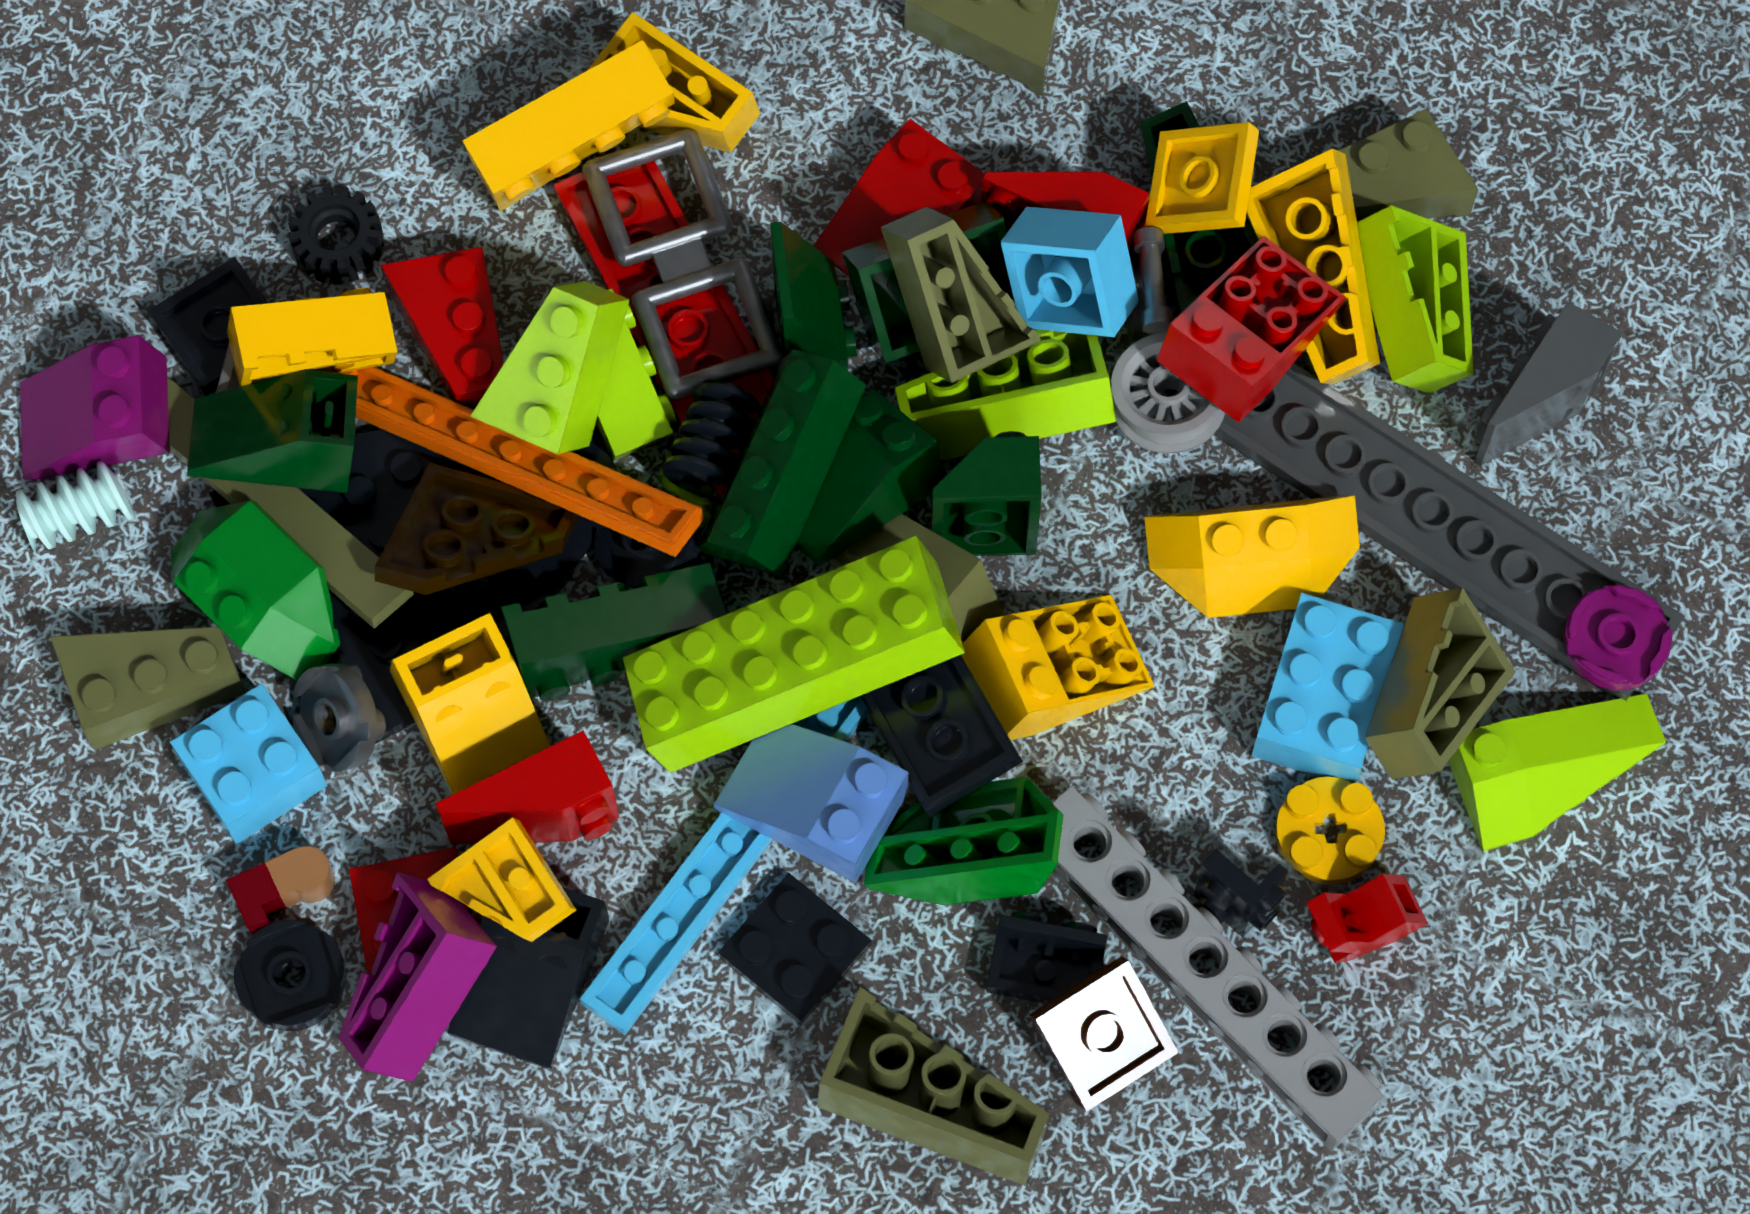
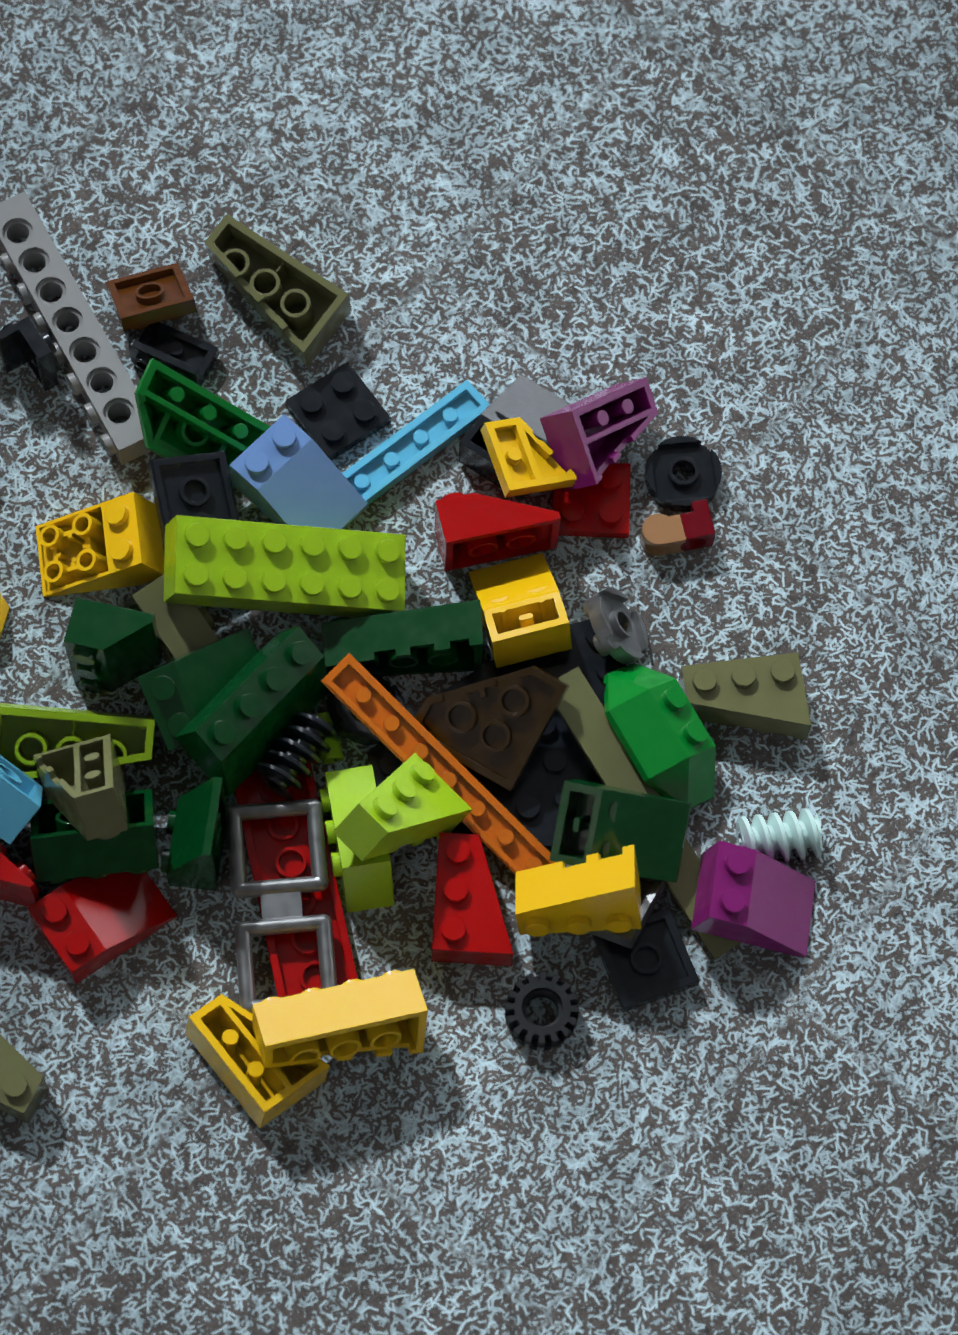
camera: 170 degrees left, 0 degrees up
(249, 763) = (685, 615): medium azure brick -> none

